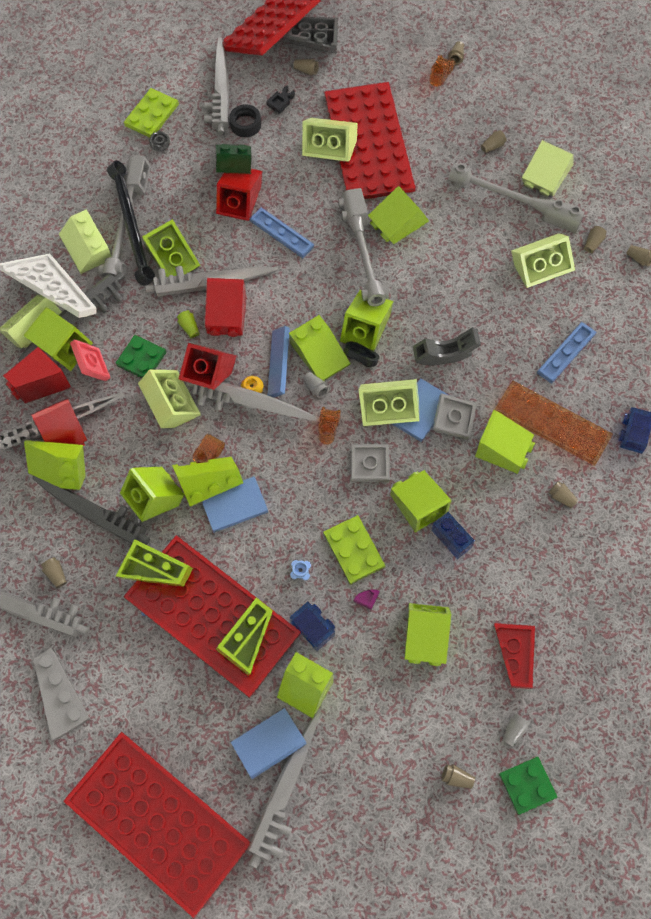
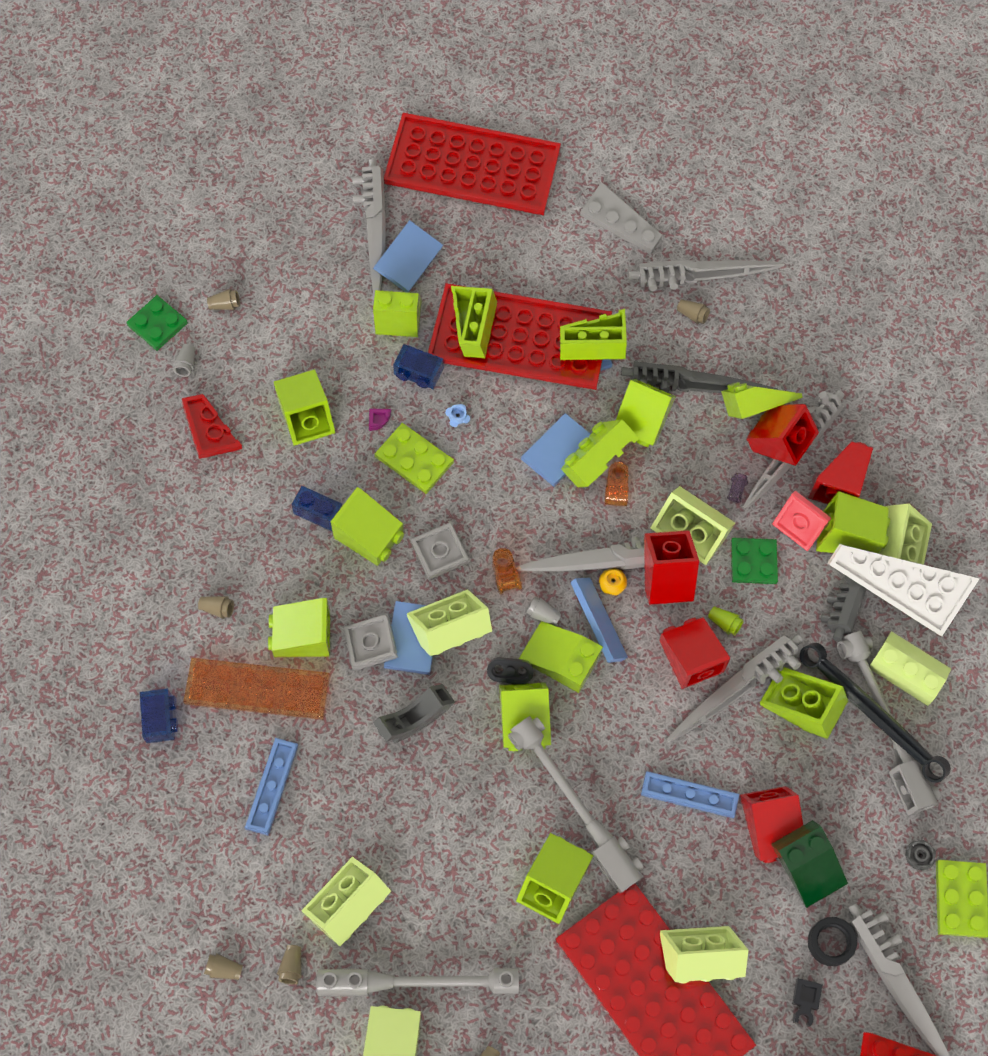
camera: 150 degrees right, 0 degrees up
(119, 411) = (739, 482): none -> clear purple pin

